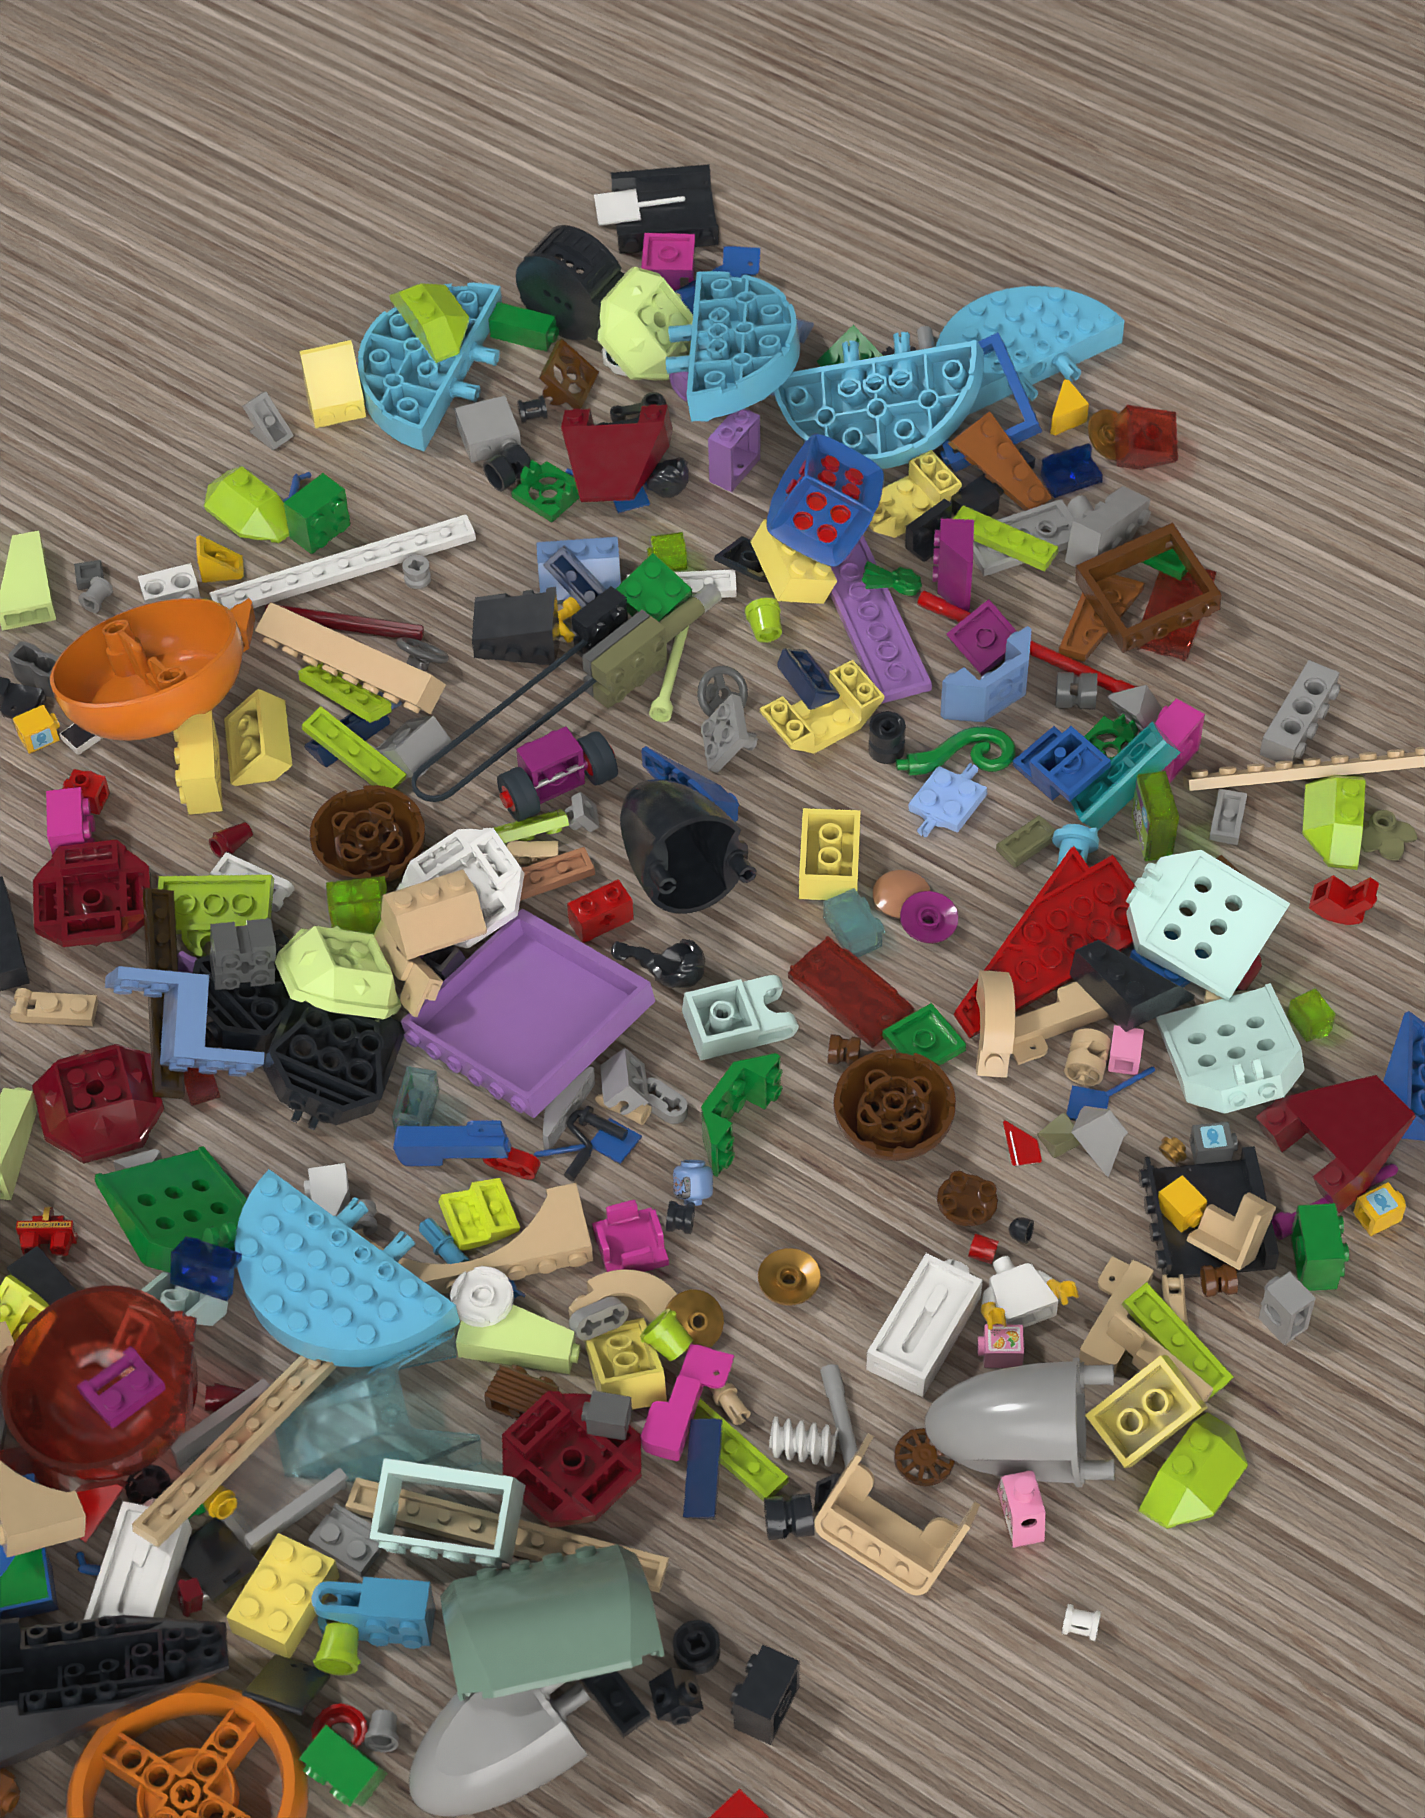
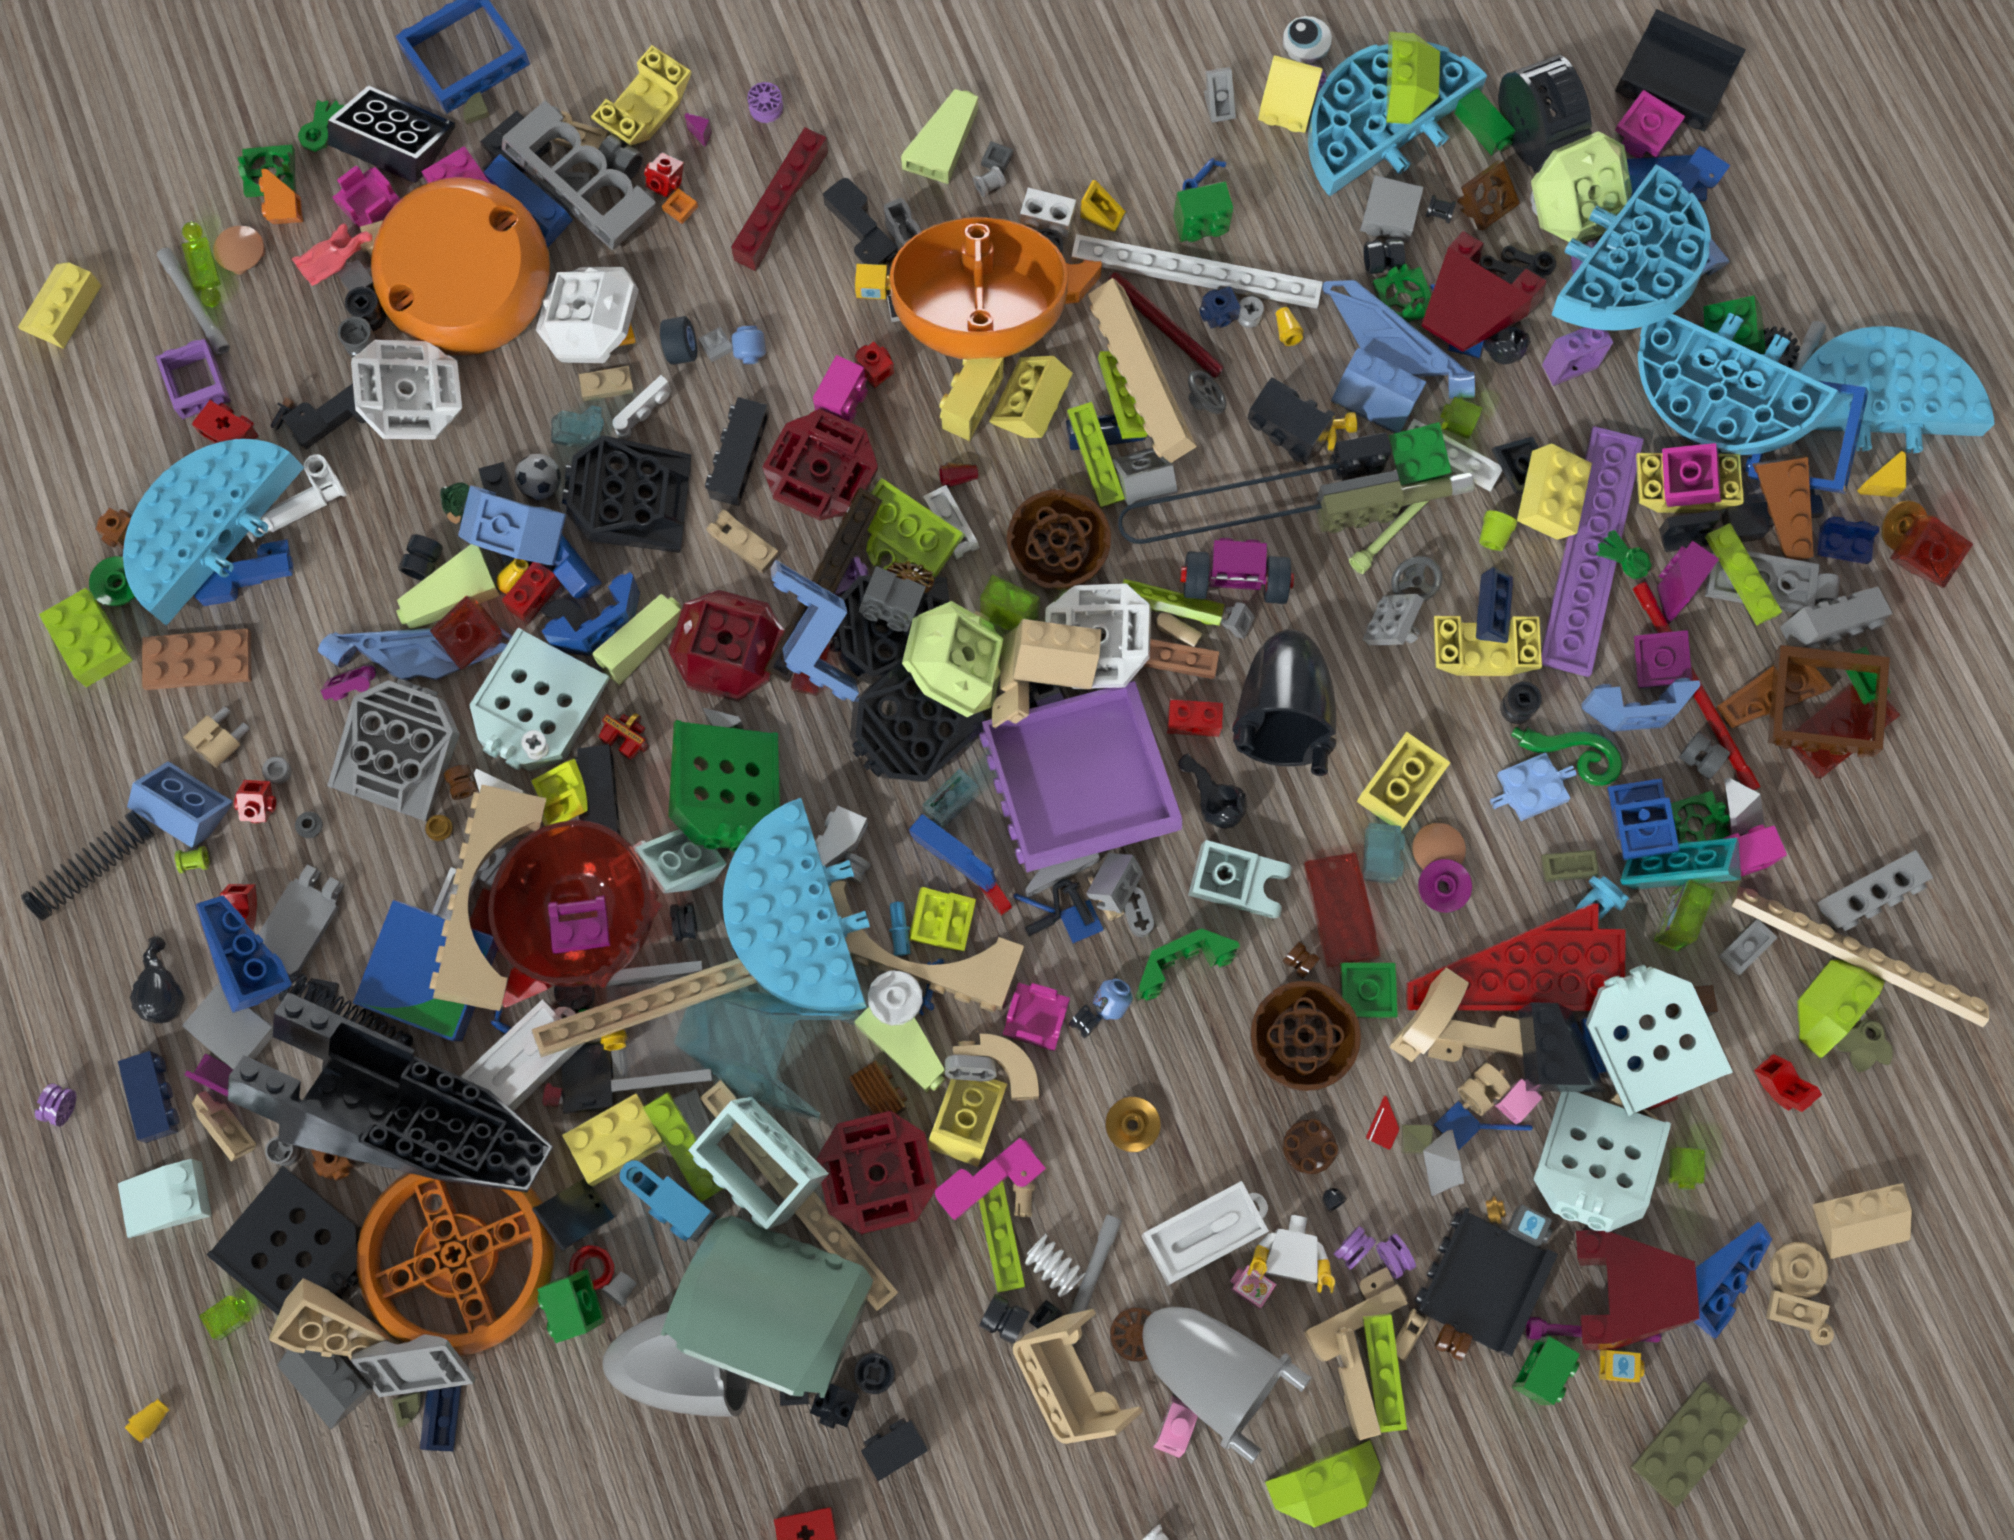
camera: 30 degrees right, 20 degrees up
(204, 1268) = (705, 851): clear blue bracket -> none
(220, 1395) = (668, 952): dark red cone -> none
(221, 1359) = (683, 921): none -> black wheel
(247, 506) = (1153, 166): lime wedge -> none
(313, 337) = (1307, 39): none -> tile
(338, 1650) = (625, 1209): lime piece -> none
(354, 1551) = (679, 1139): none -> lime plate
(386, 580) = (1219, 307): none -> dark blue brick
(462, 566) = (1288, 327): none -> yellow cone
(547, 522) = (1395, 340): none -> medium blue wing
(574, 576) = (1369, 402): dark blue slope -> none
(607, 1415) = (919, 1160): dark grey brick -> none
(623, 206) = (1645, 46): white piece -> none
(664, 768) = (1337, 654): blue wedge -> none
(667, 1335) = (1007, 1119): lime piece -> none
(700, 1303) = (1034, 1105): pearl gold dish -> none
(703, 1469) = (967, 1240): dark blue slope -> none
(825, 500) = (1610, 462): blue piece -> none
(906, 483) = (1691, 475): none -> dark pink brick
(983, 1248) = (1293, 1196): red hose -> none
(1067, 1254) = (1351, 1246): none -> medium lavender wheel
(1113, 1237) = (1396, 1256): none -> medium lavender wheel
(1146, 1411) = (1316, 1421): light yellow brick -> none
(1182, 1204) = (1468, 1263): yellow brick -> none
(1234, 1237) = (1484, 1318): tan panel -> none
(1286, 1307) = (1485, 1403): light grey brick -> none

